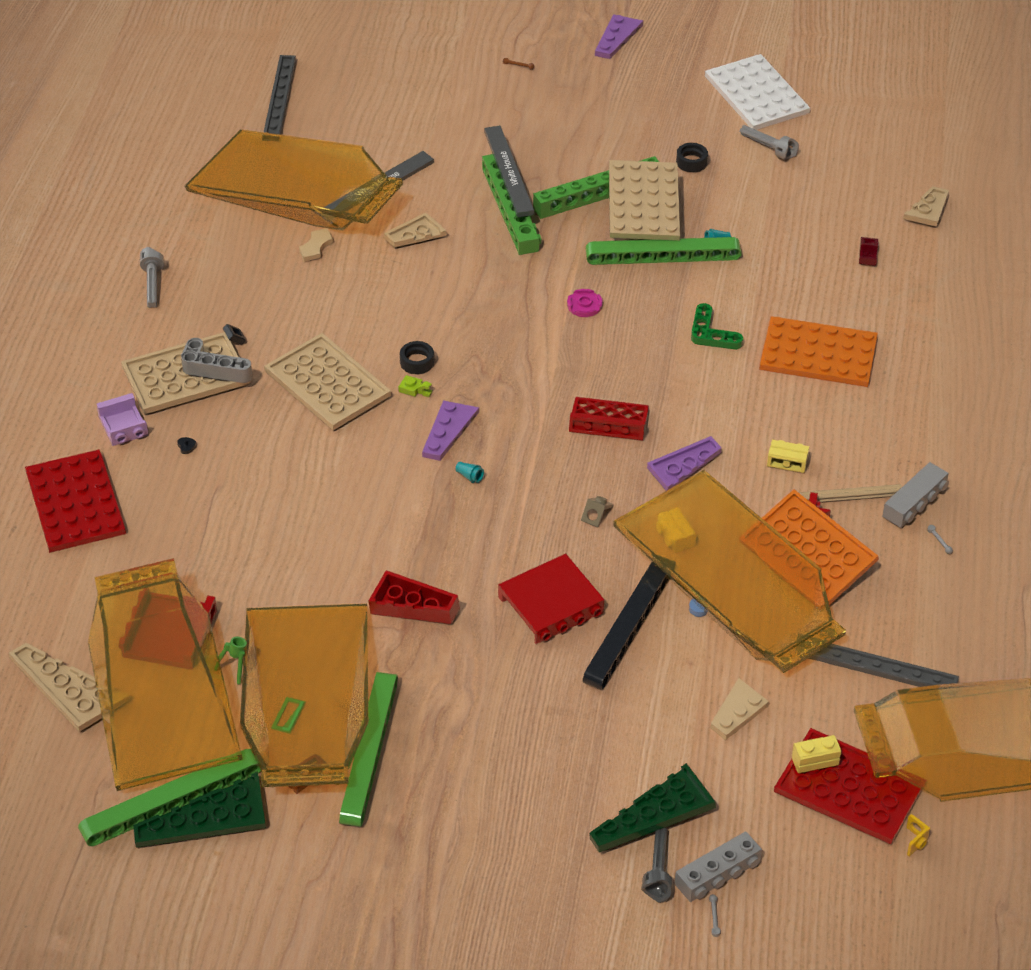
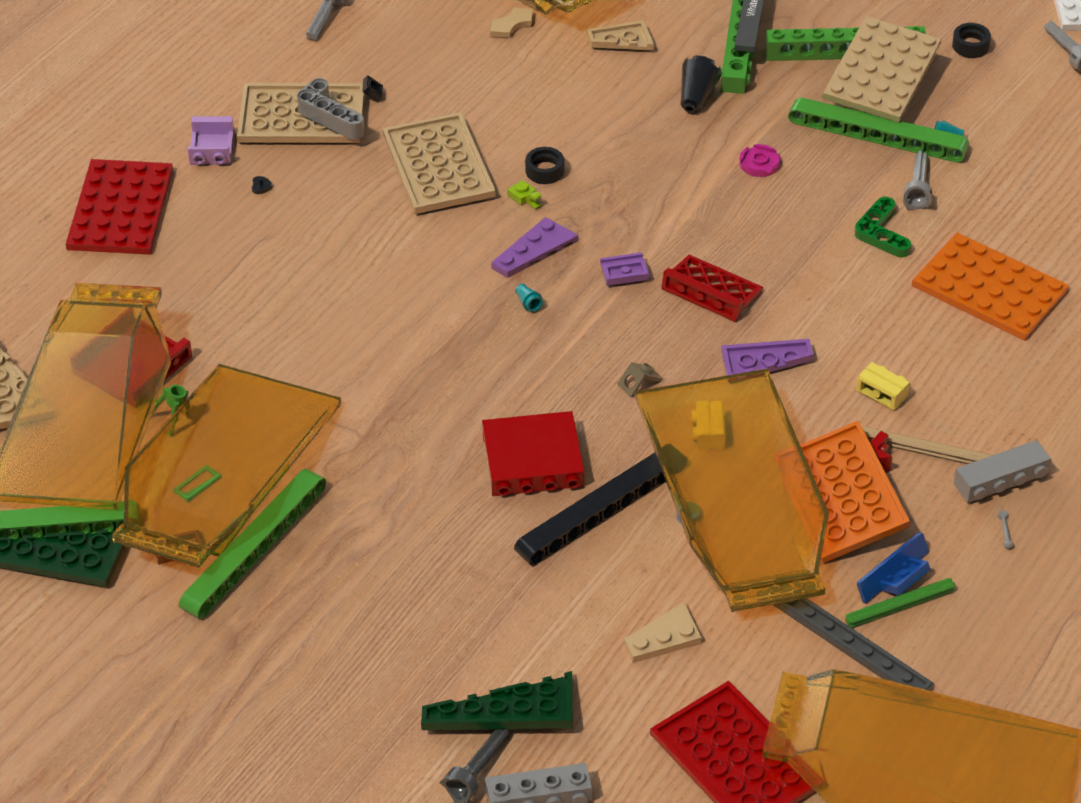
camera: 25 degrees right, 0 degrees up
(412, 600) = (385, 407): red wedge -> none
(502, 251) = (698, 81): none -> black cone
(532, 424) = (624, 269): none -> medium lavender plate
(724, 292) = (917, 192): none -> light grey piece
(816, 754) = (711, 708): light yellow brick -> none
(885, 598) = (897, 570): none -> blue bracket
(897, 622) = (899, 602): none -> bright green axle

